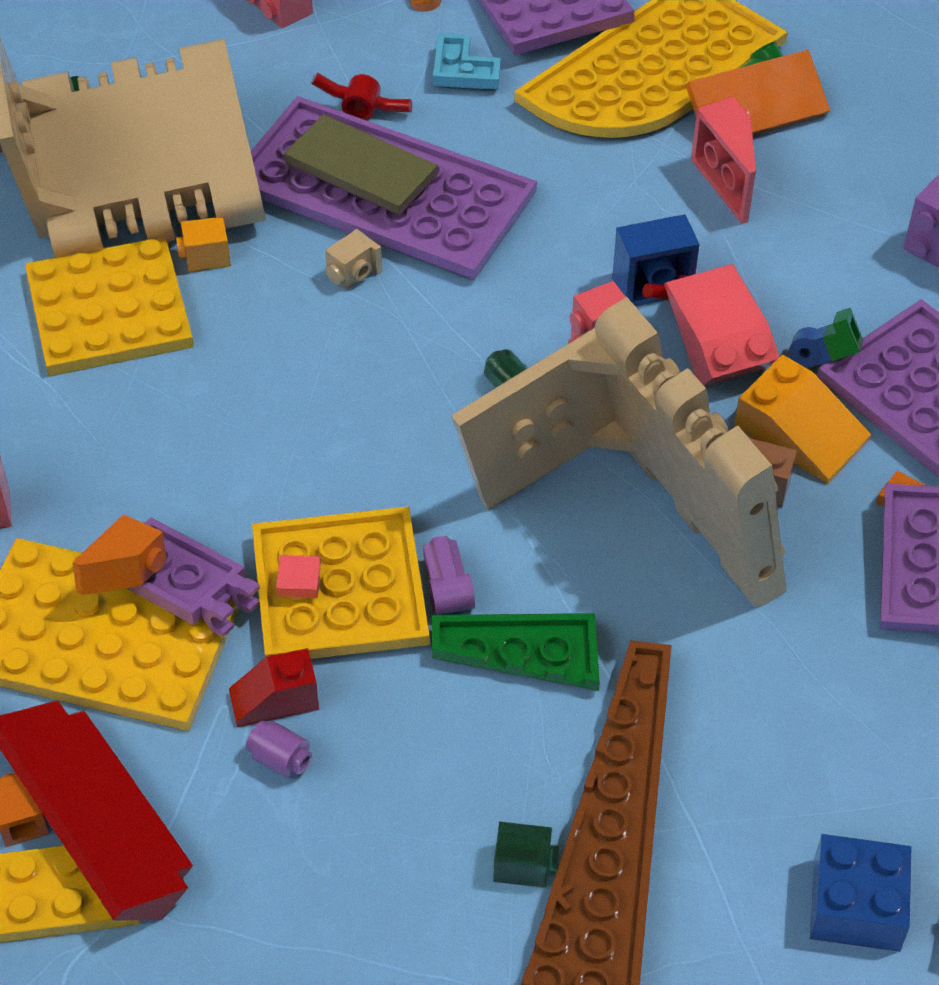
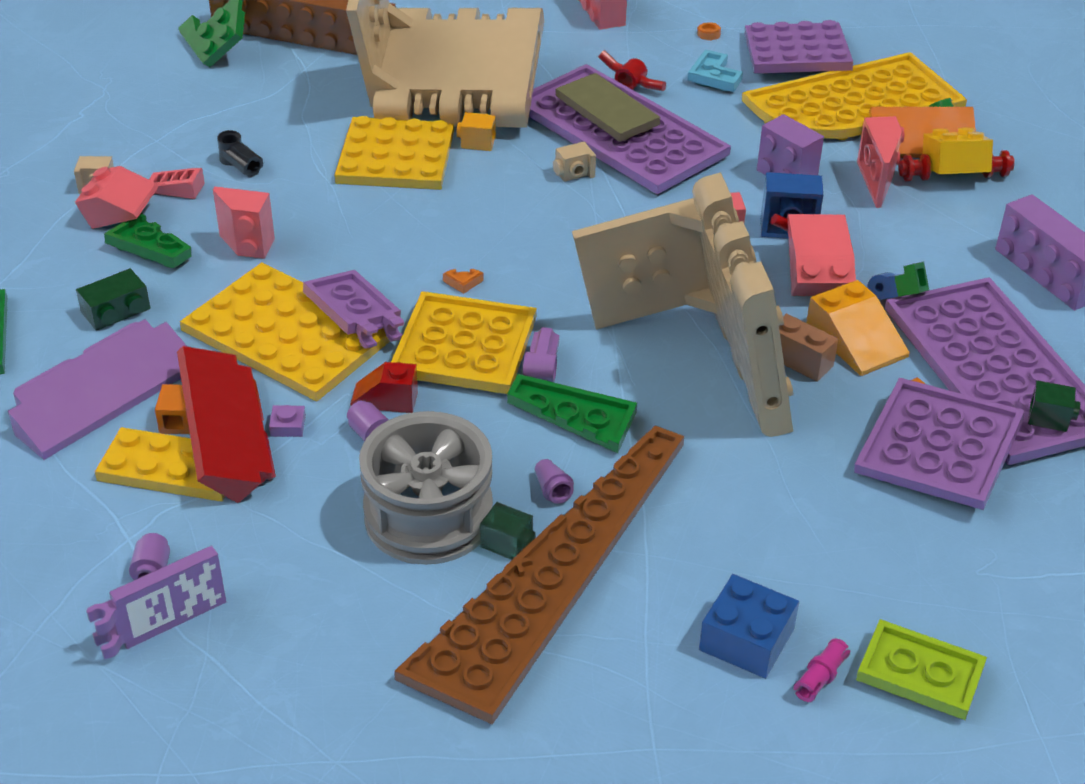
camera: 20 degrees right, 10 degrees down
(120, 557) = (314, 278): orange slope -> none
(168, 775) = (287, 421): none -> medium lavender plate
(290, 484) = (463, 280): none -> orange tile
(298, 576) = (435, 326): coral tile -> none
(396, 781) = (425, 454): none -> light grey wheel
(545, 761) = (554, 482): none -> medium lavender cone
(618, 177) = (789, 148): none -> medium lavender brick
(812, 126) = (956, 153): none -> yellow brick

